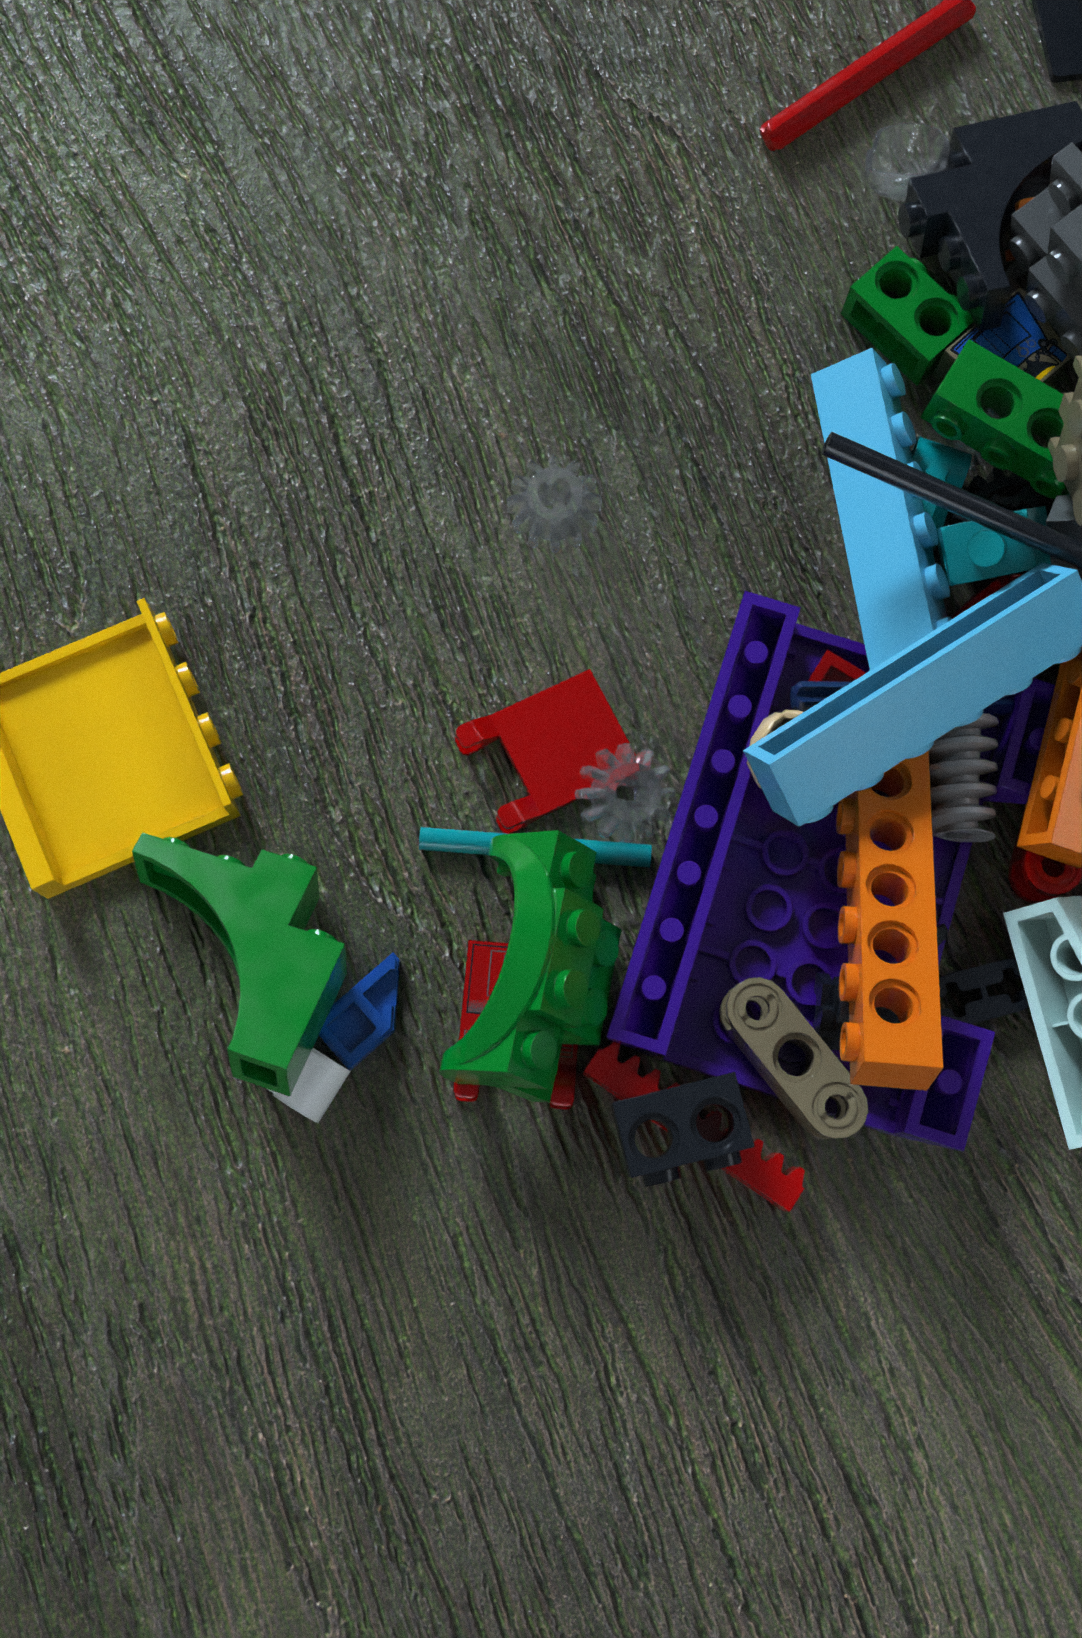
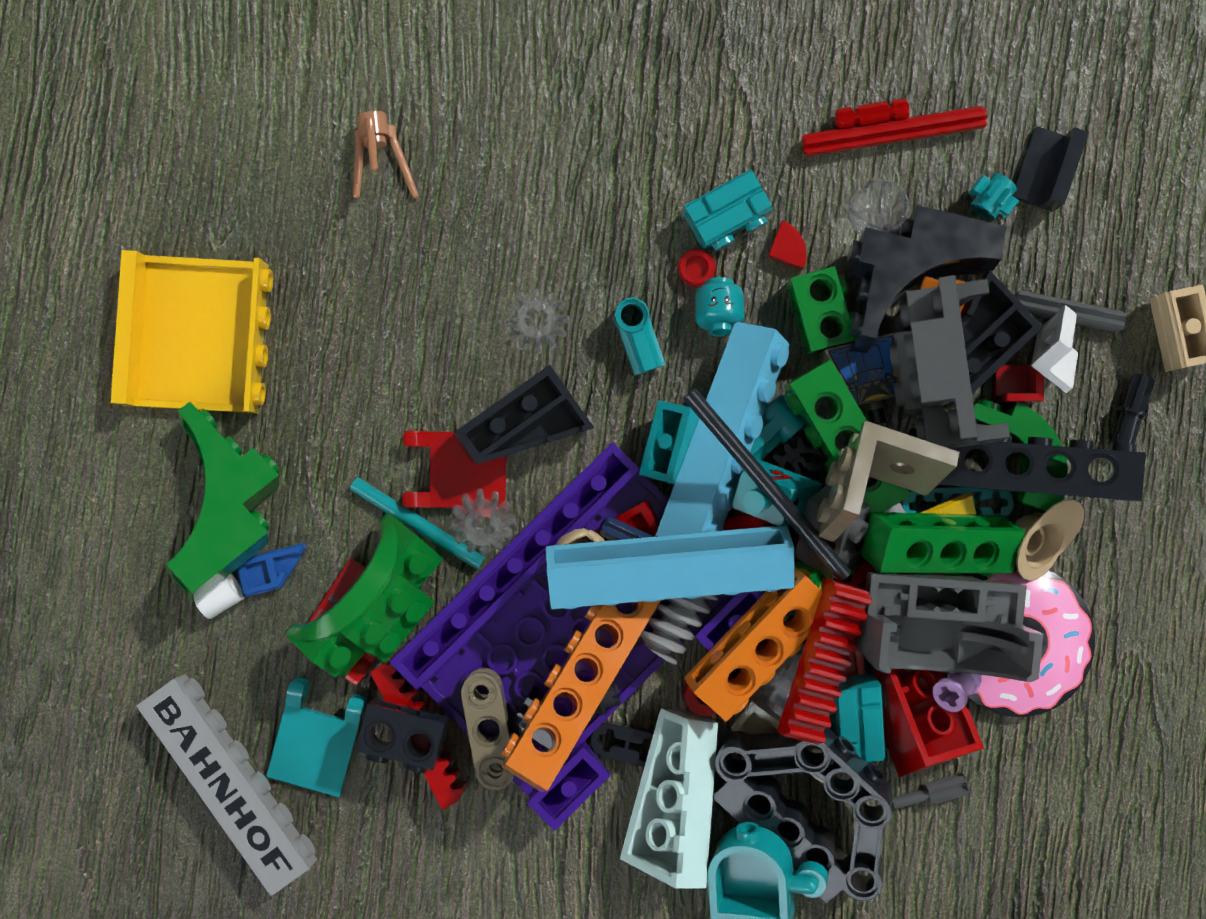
camera: 30 degrees right, 10 degrees up
(218, 382) = (372, 134): none -> nougat plant
(464, 1345) = (228, 783): none -> light grey brick
(554, 1228) = (313, 745): none -> teal flag
(609, 629) = (522, 419): none -> black wedge
(697, 462) = (639, 340): none -> teal piece
(719, 346) = (696, 267): none -> red tile
(720, 255) = (728, 211): none -> teal brick
(777, 370) = (719, 306): none -> teal head
(816, 561) = (668, 441): none -> teal brick
(820, 264) = (788, 247): none -> red tile
(829, 62) = (872, 113): none -> red axle
(1036, 79) = (993, 196): none -> teal gear

